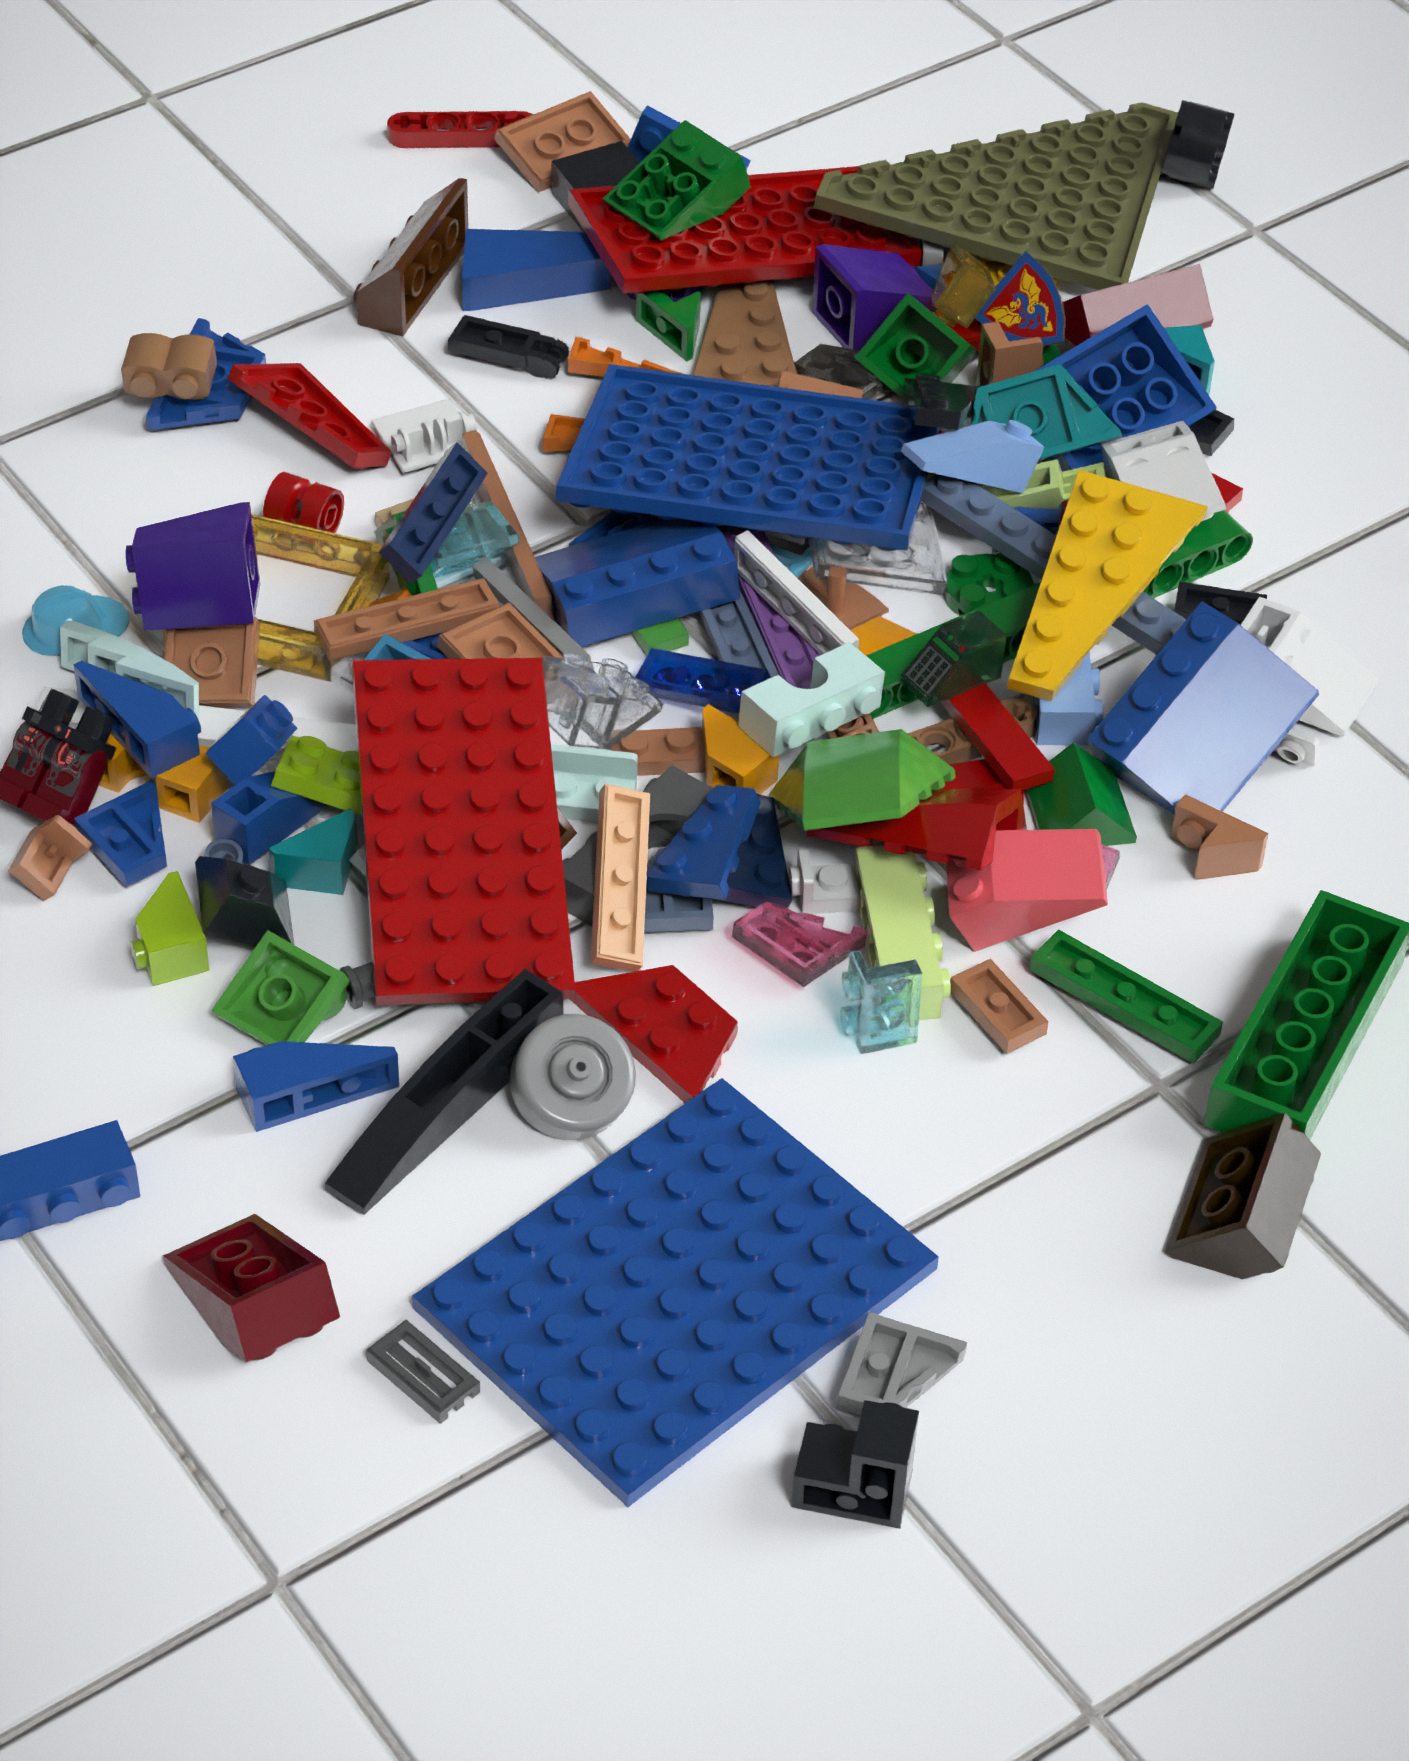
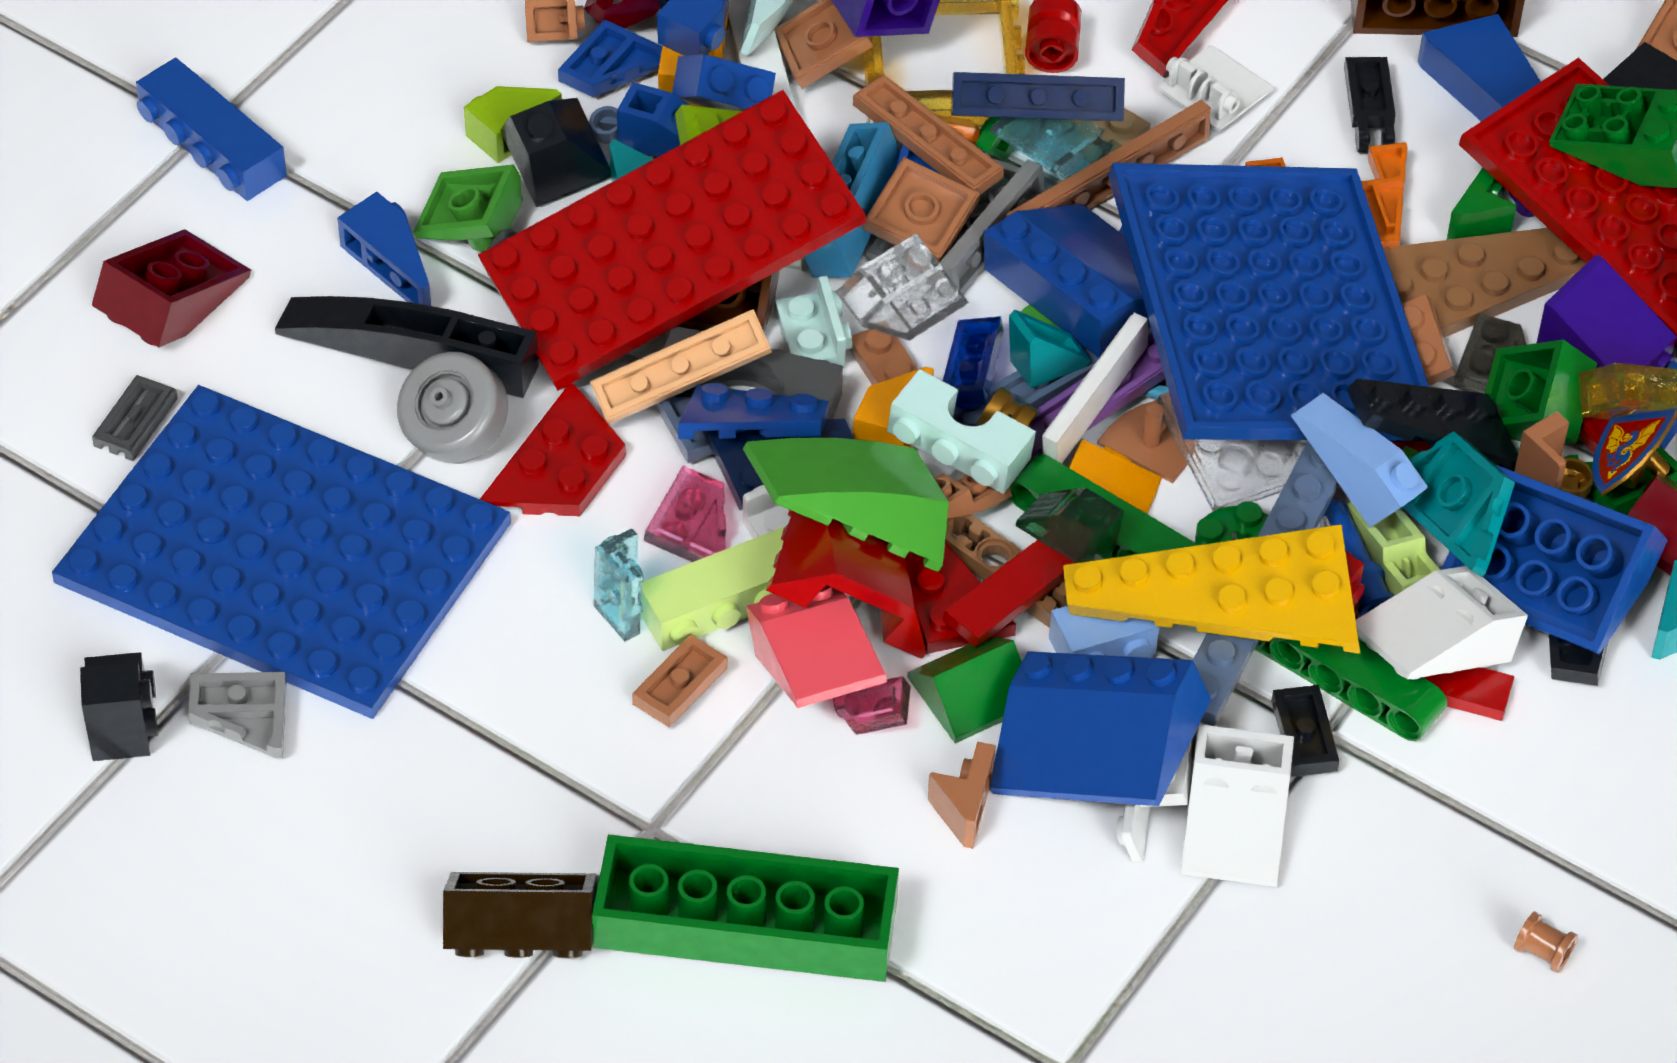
camera: 70 degrees right, 5 degrees up
(726, 629) = (1042, 350): none -> teal slope
(795, 665) = (1004, 403): none -> pearl gold wheel
(1126, 996) = (735, 769): green plate -> none

